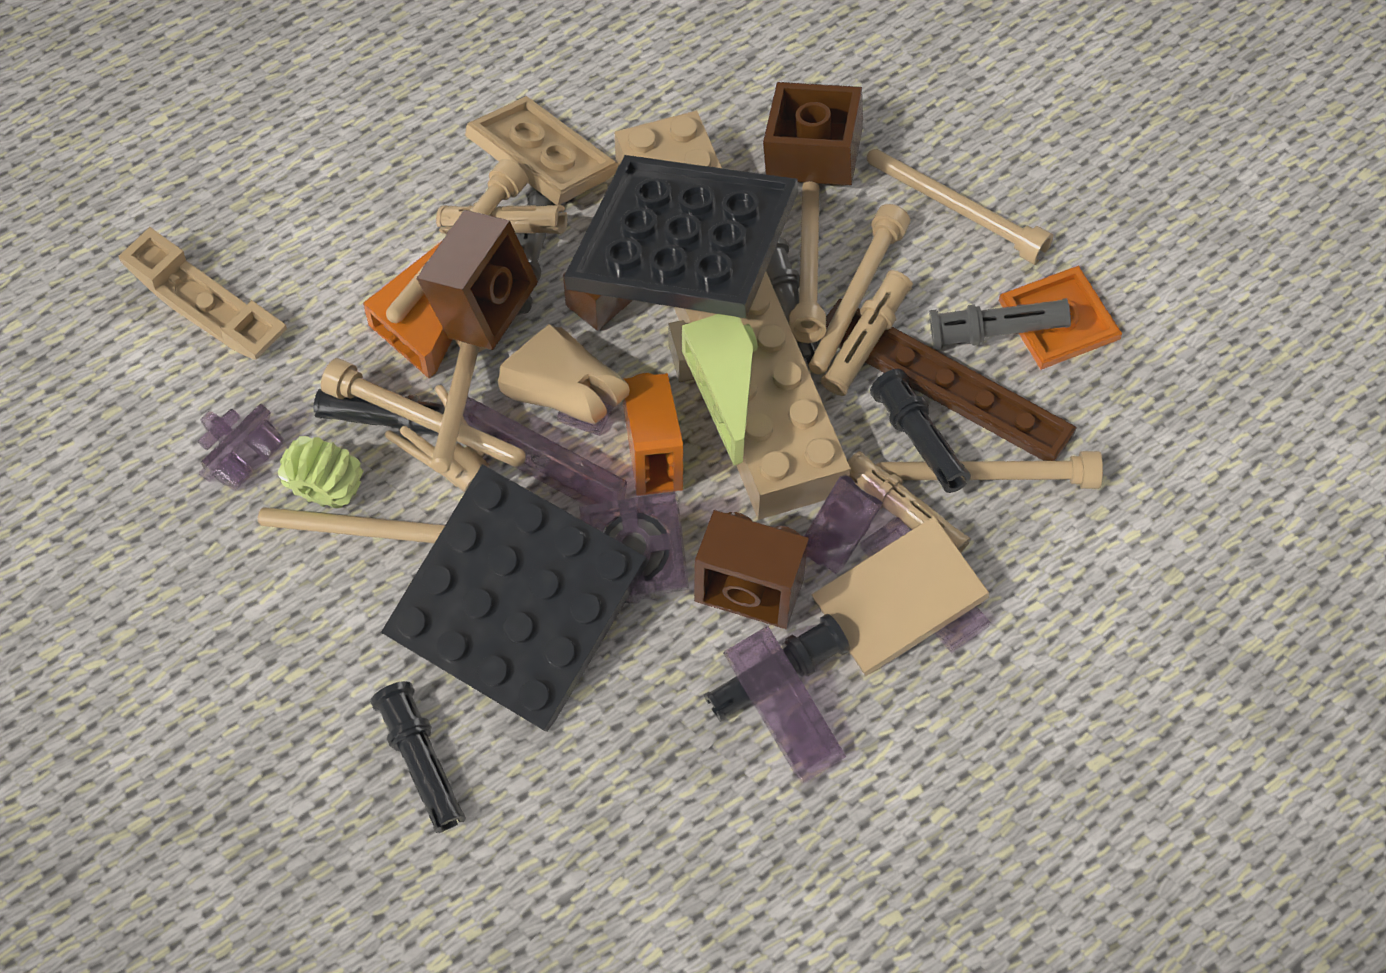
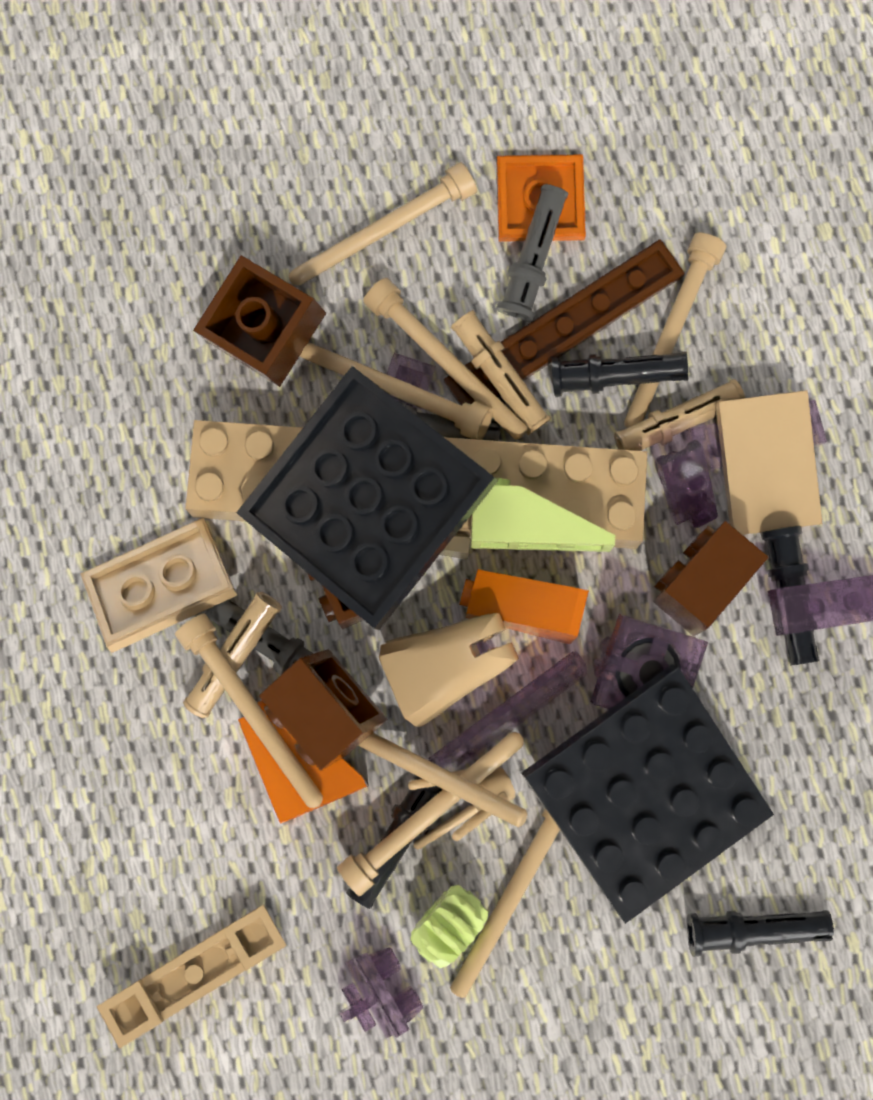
camera: 65 degrees left, 20 degrees up
(831, 272) = (411, 372): none -> tile

